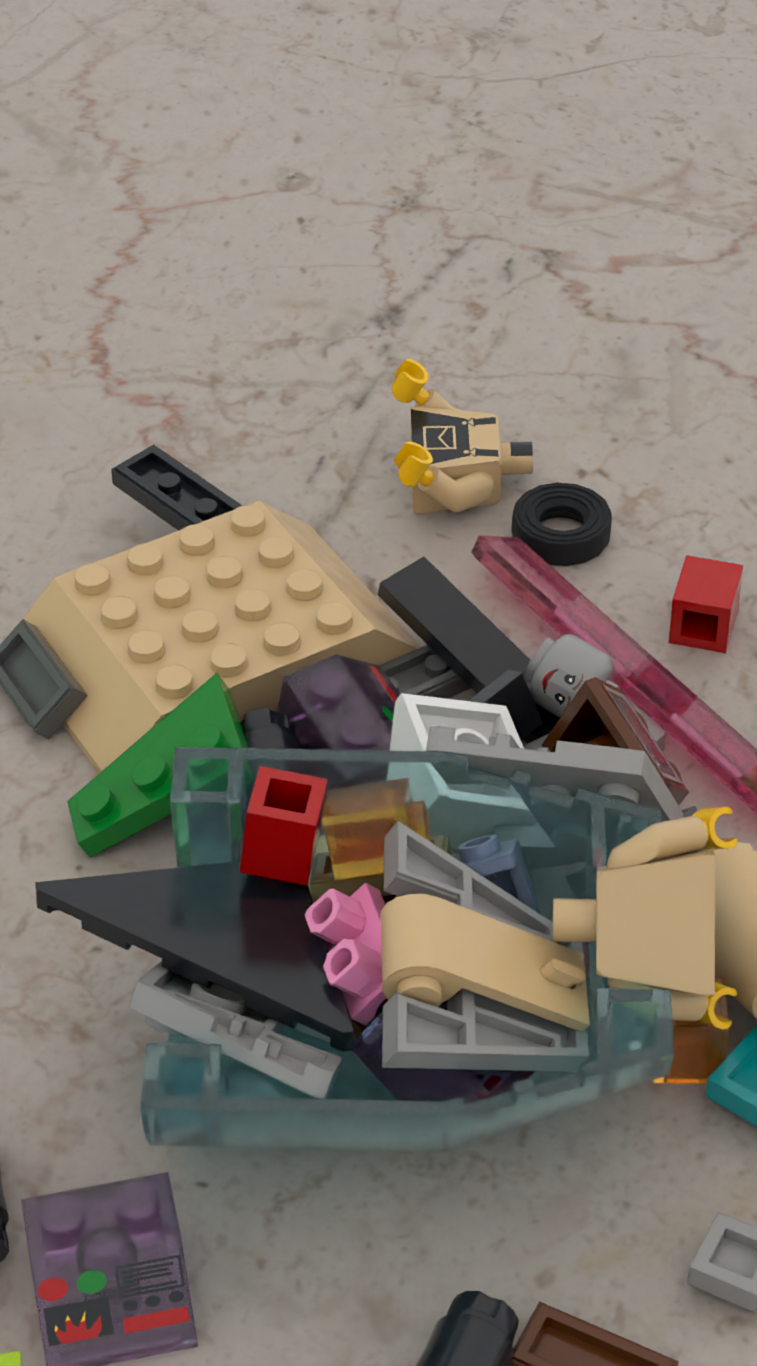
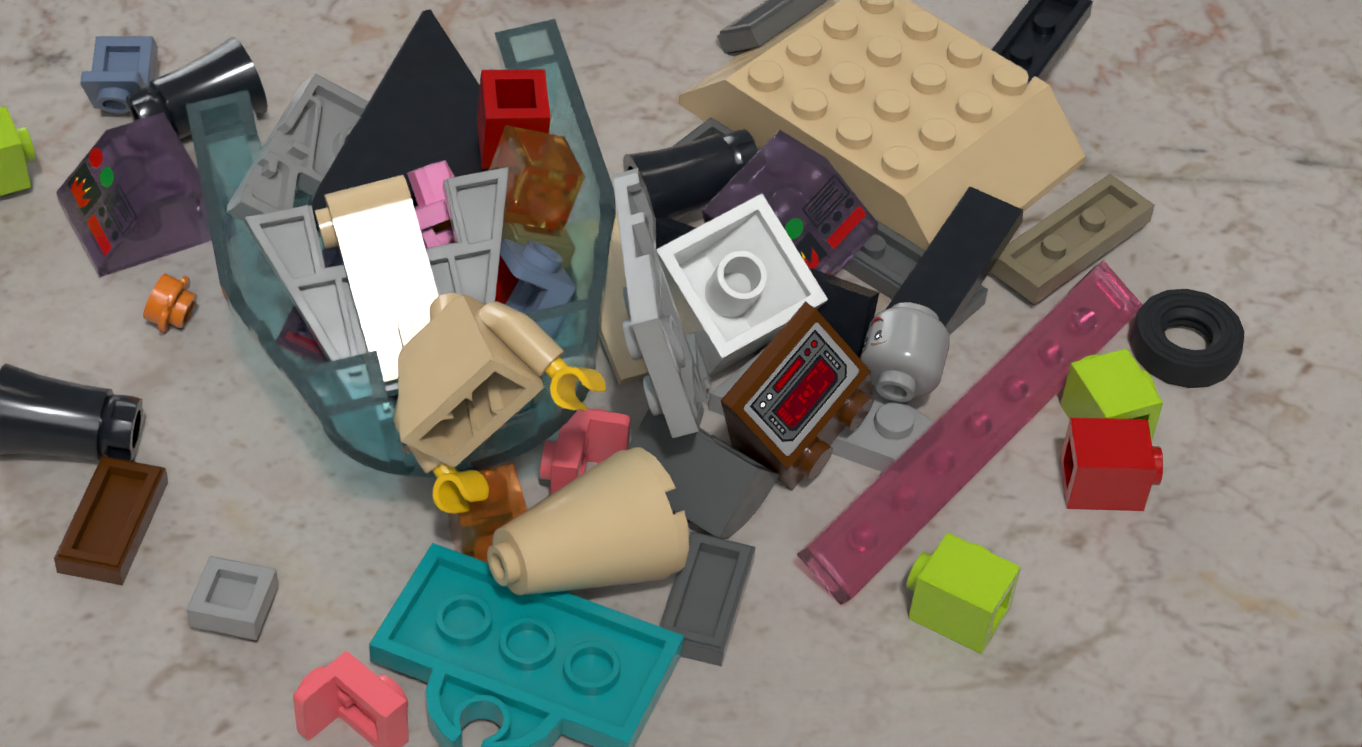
camera: 70 degrees right, 5 degrees up
(139, 782) = (677, 106): green wing -> none
(287, 1266) = (170, 303): none -> orange plate
(408, 533) = (1072, 238): none -> dark tan plate
(452, 452) = (1232, 227): torso -> none
(634, 582) = (1111, 388): none -> lime brick

